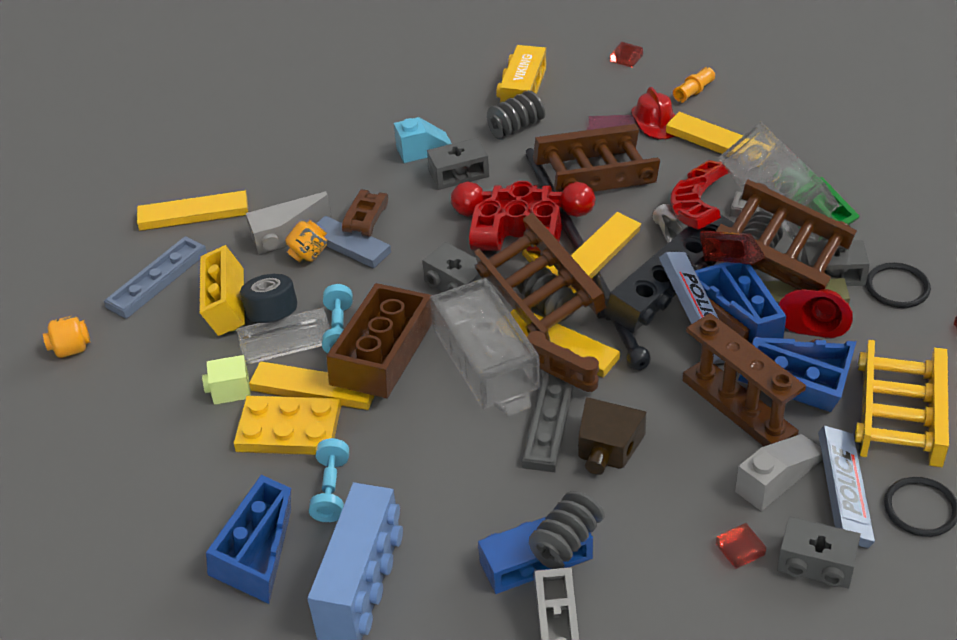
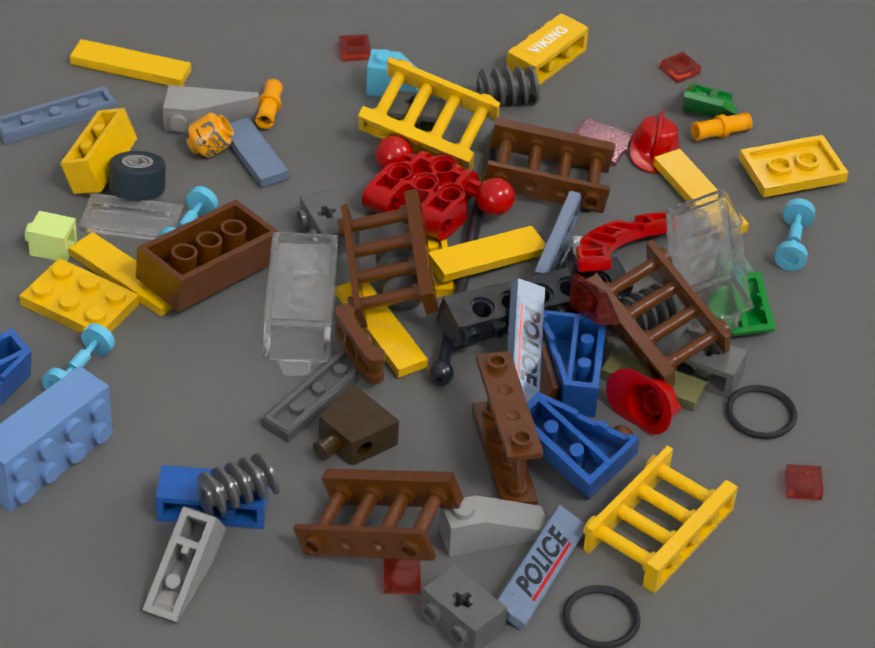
camera: 20 degrees right, 0 degrees up
(335, 197) = (269, 103): none -> light orange pin
(364, 212) = (286, 128): reddish brown plate -> none
(369, 130) = (354, 47): none -> clear red tile
(446, 179) = (380, 125): none -> yellow fence
(646, 213) = (560, 234): none -> sand blue tile
(668, 71) = (708, 101): none -> green slope
(688, 473) = (379, 488): none -> reddish brown fence
(768, 93) = (793, 166): none -> yellow plate
(823, 156) = (792, 254): none -> medium azure wheel

